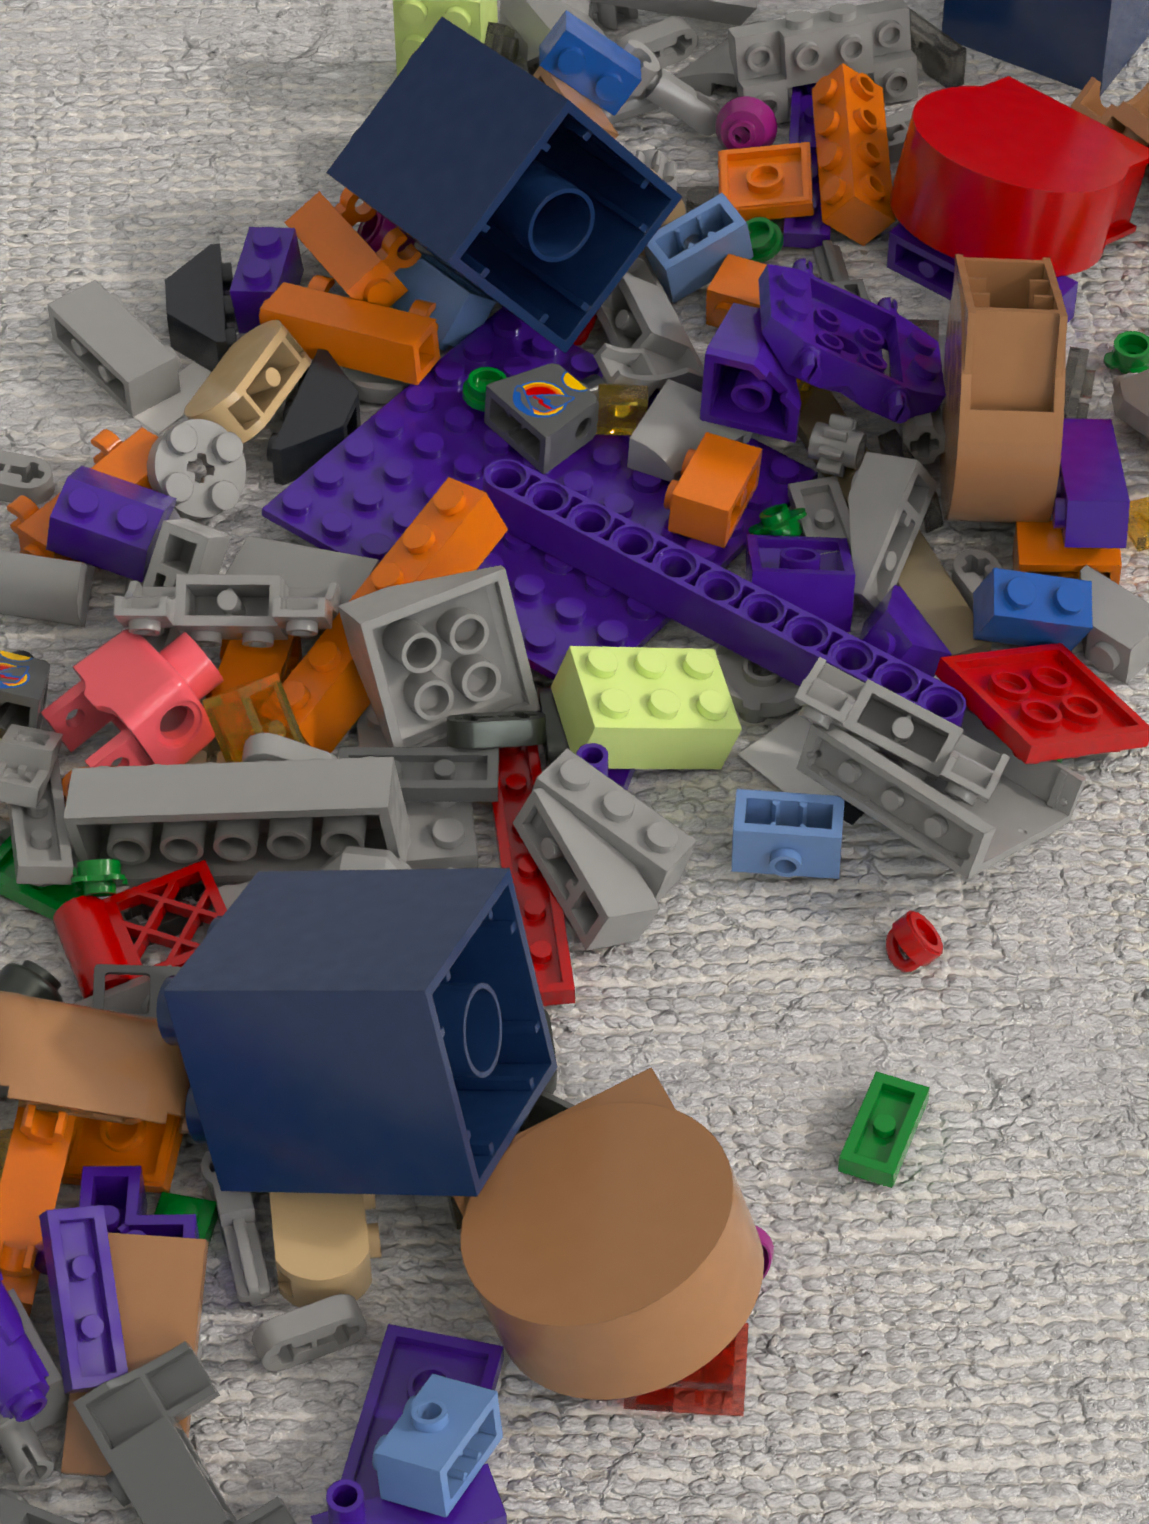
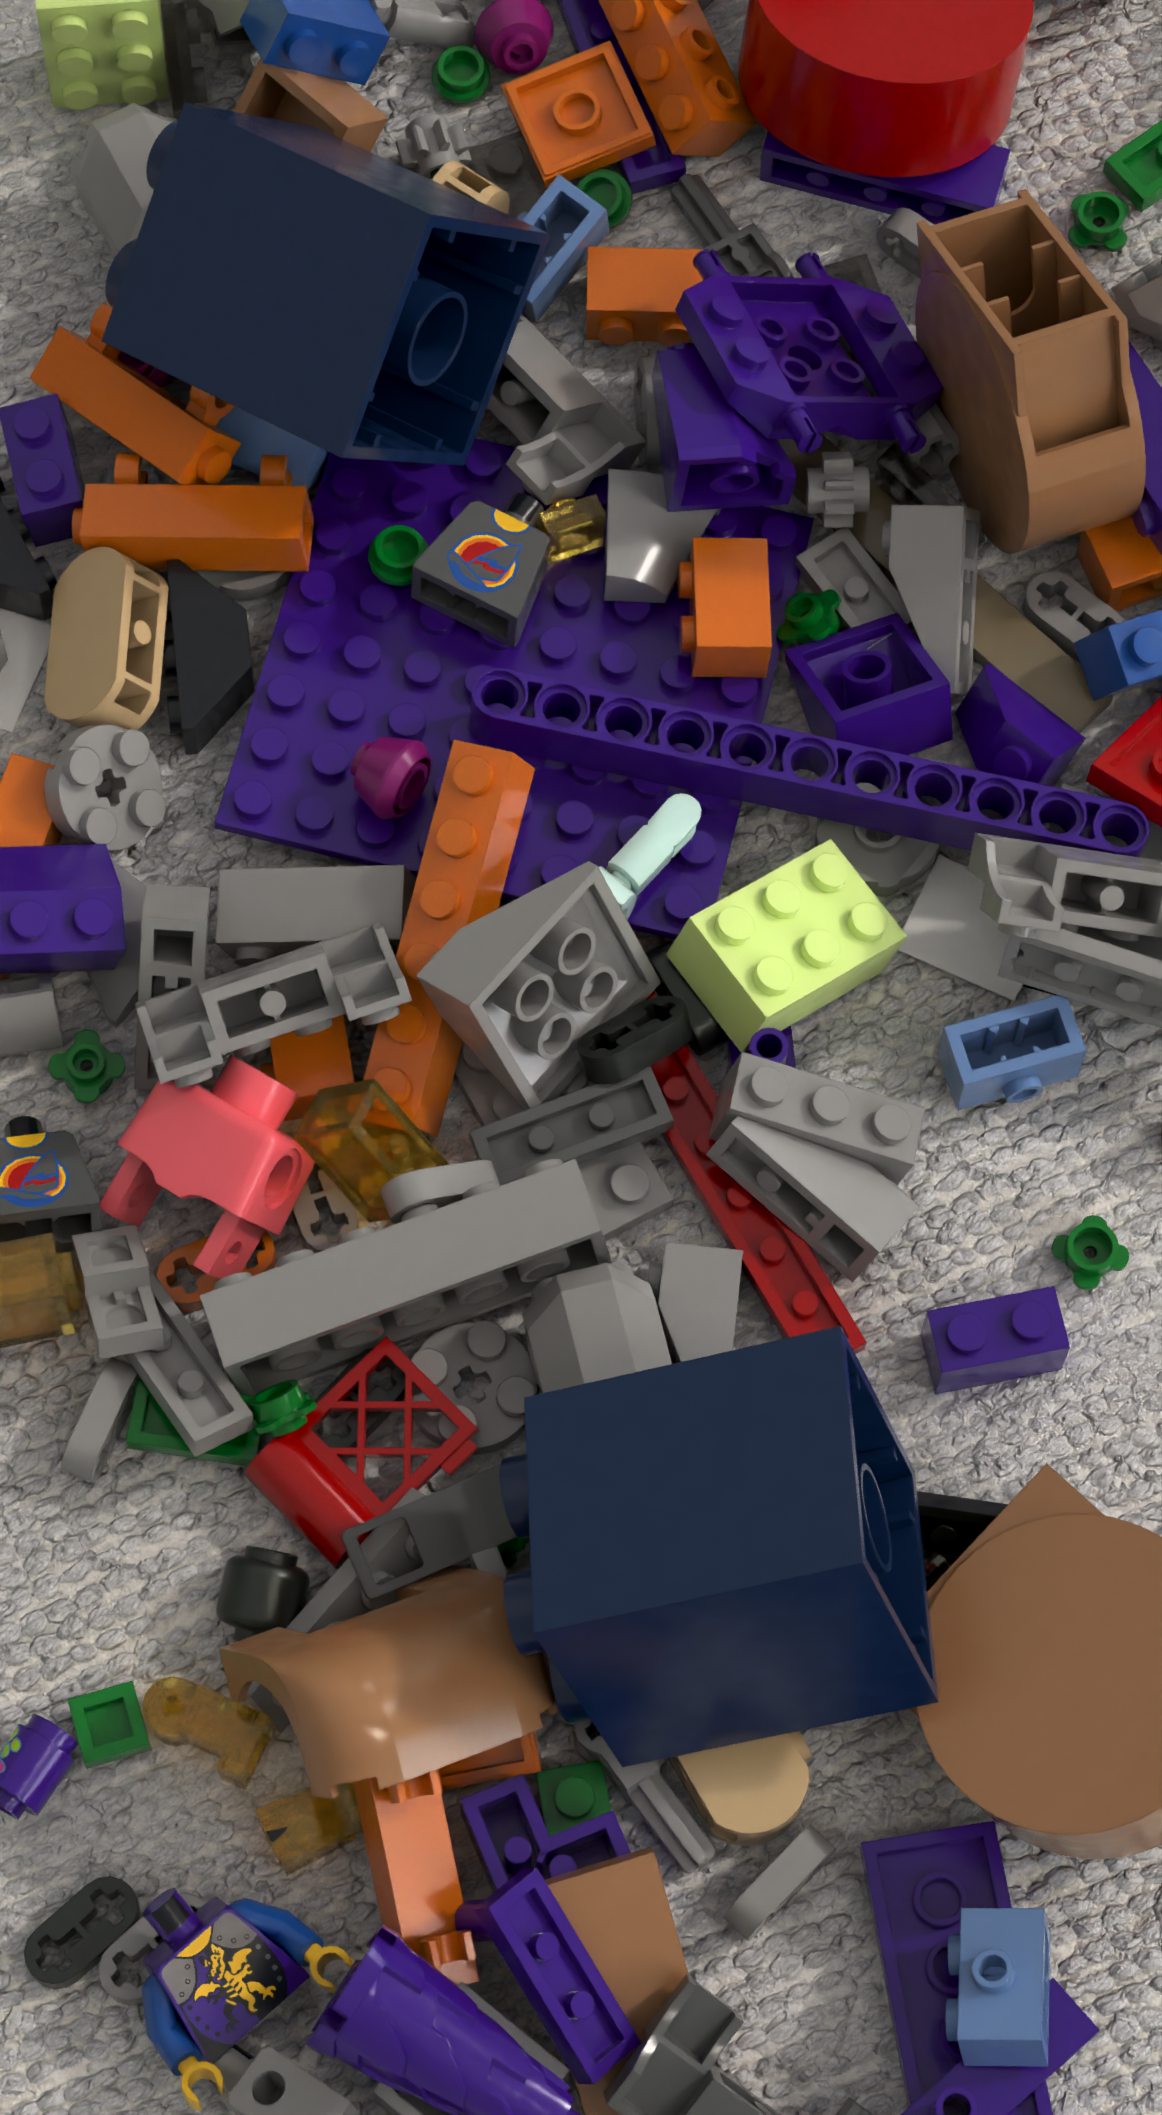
camera: 25 degrees left, 20 degrees up
(86, 636) = (90, 1084): none -> green plate
(397, 503) = (391, 775): none -> magenta cone
(568, 614) = (651, 849): none -> light aqua piece
(676, 1021) = (994, 1340): none -> dark purple brick
(696, 144) = (461, 75): none -> green plate
(790, 982) = (1090, 1234): none -> green plate

